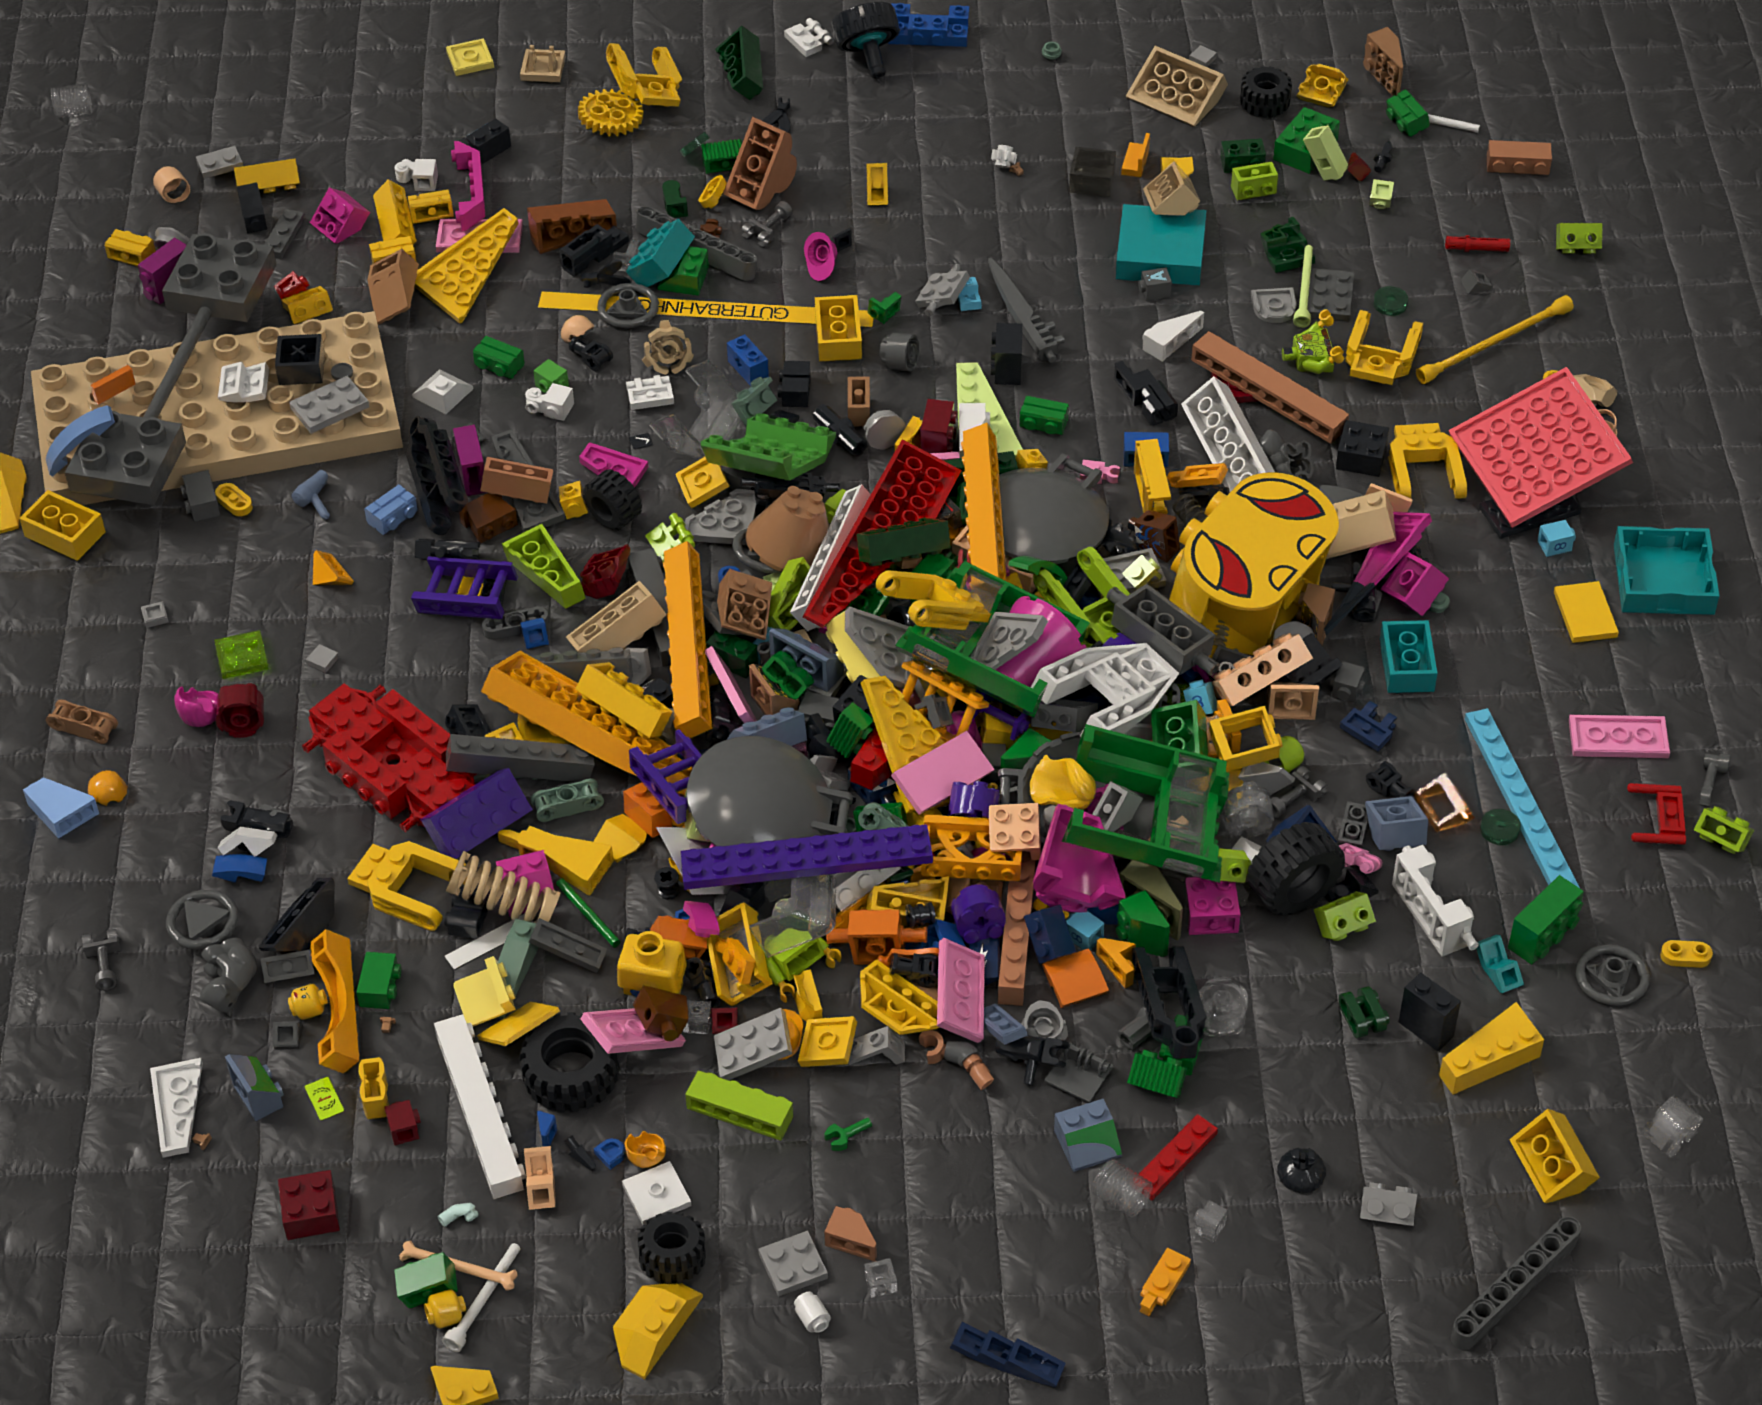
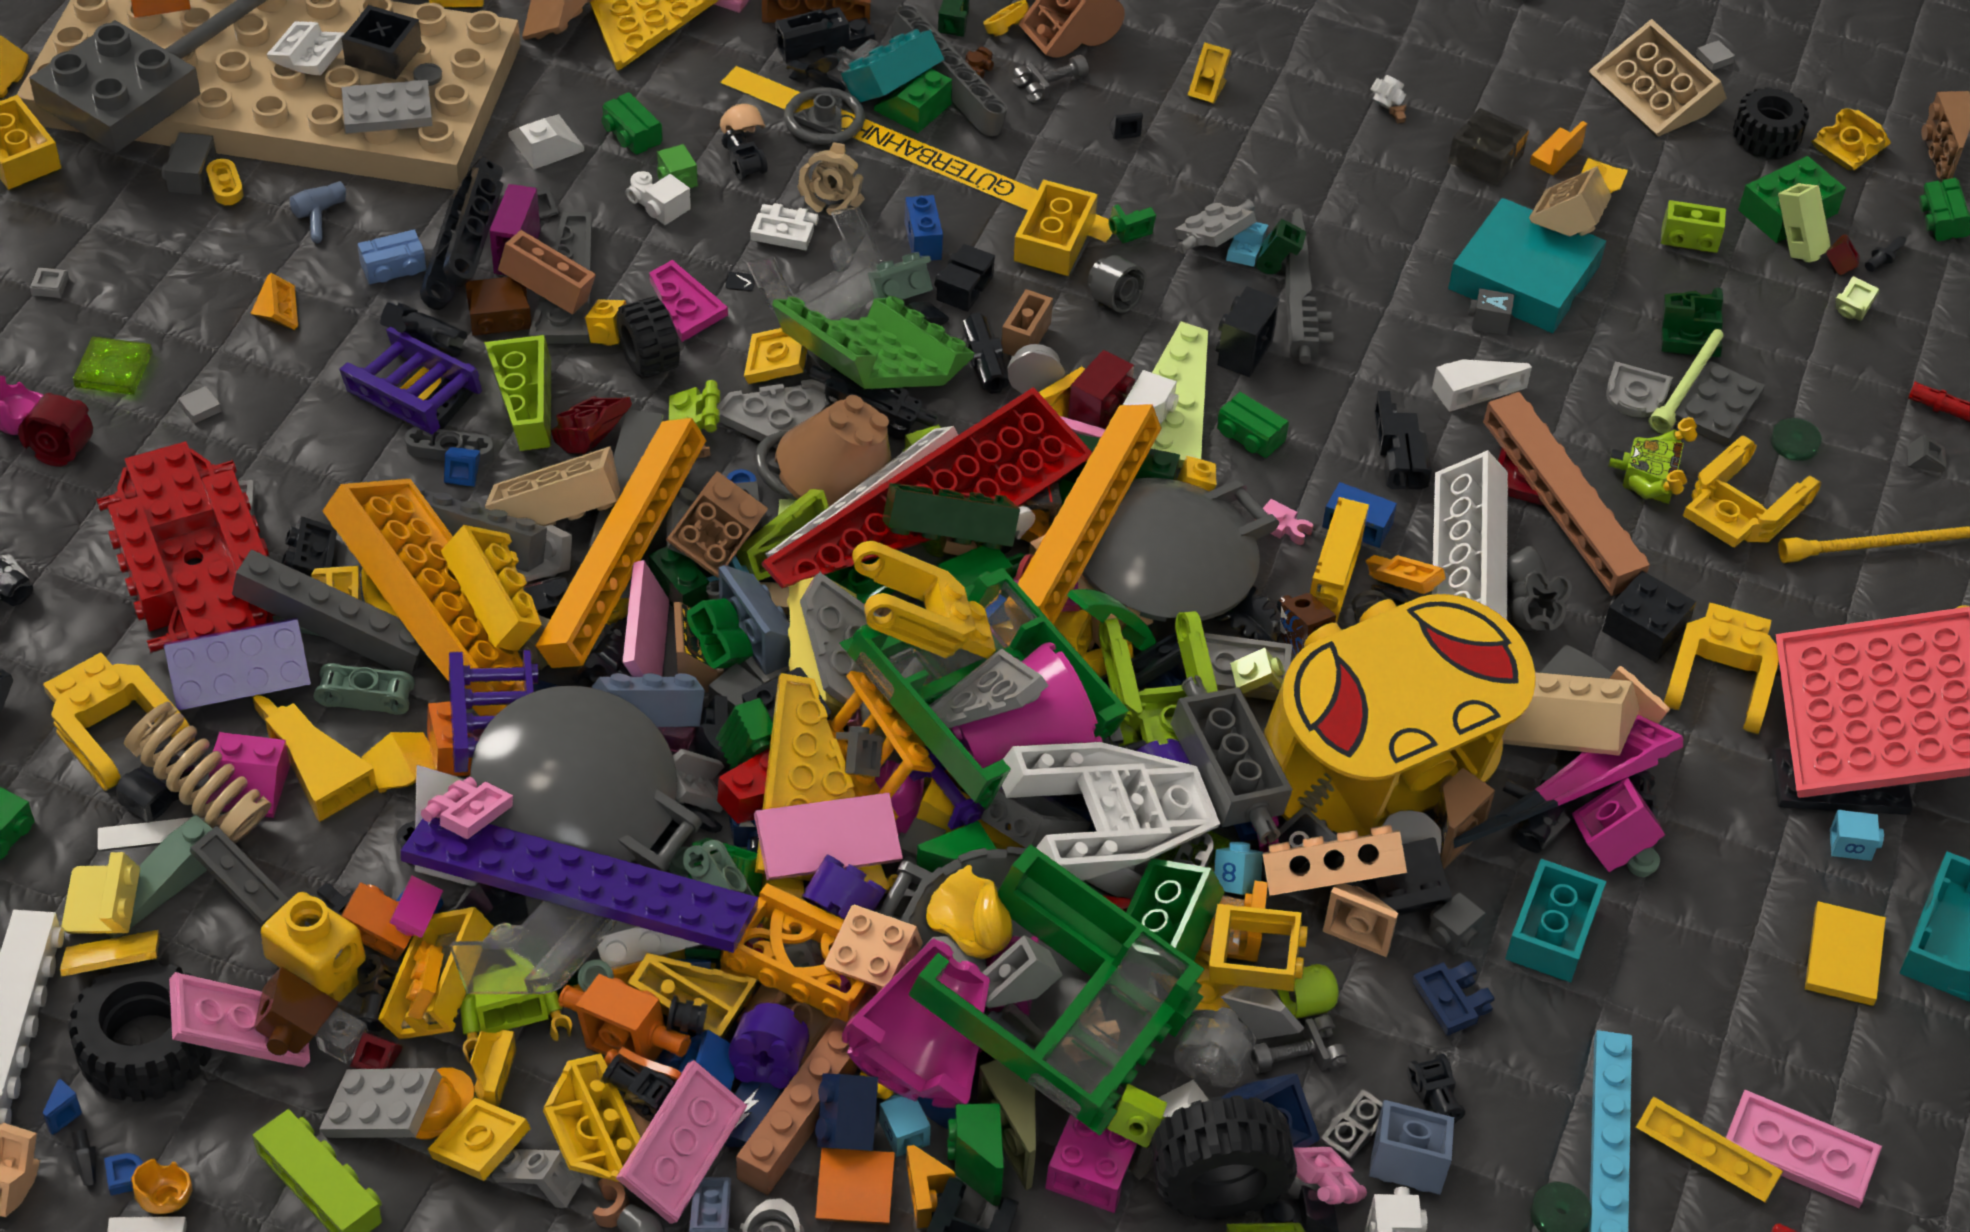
camera: 20 degrees right, 0 degrees up
(93, 421) = (88, 29): medium blue slope -> none
(588, 912) = (300, 840): green bar -> none
(715, 841) = (467, 807): none -> bright pink plate
(820, 255) = (1089, 134): dark pink piece -> none
(842, 915) = (590, 970): none -> sand green plate
(995, 287) = (1280, 242): none -> dark green leg
(1241, 153) = (1697, 186): dark green brick -> none
(1440, 785) = (1517, 1166): clear orange tile -> none
(1568, 756) = (1709, 1149): none -> yellow plate

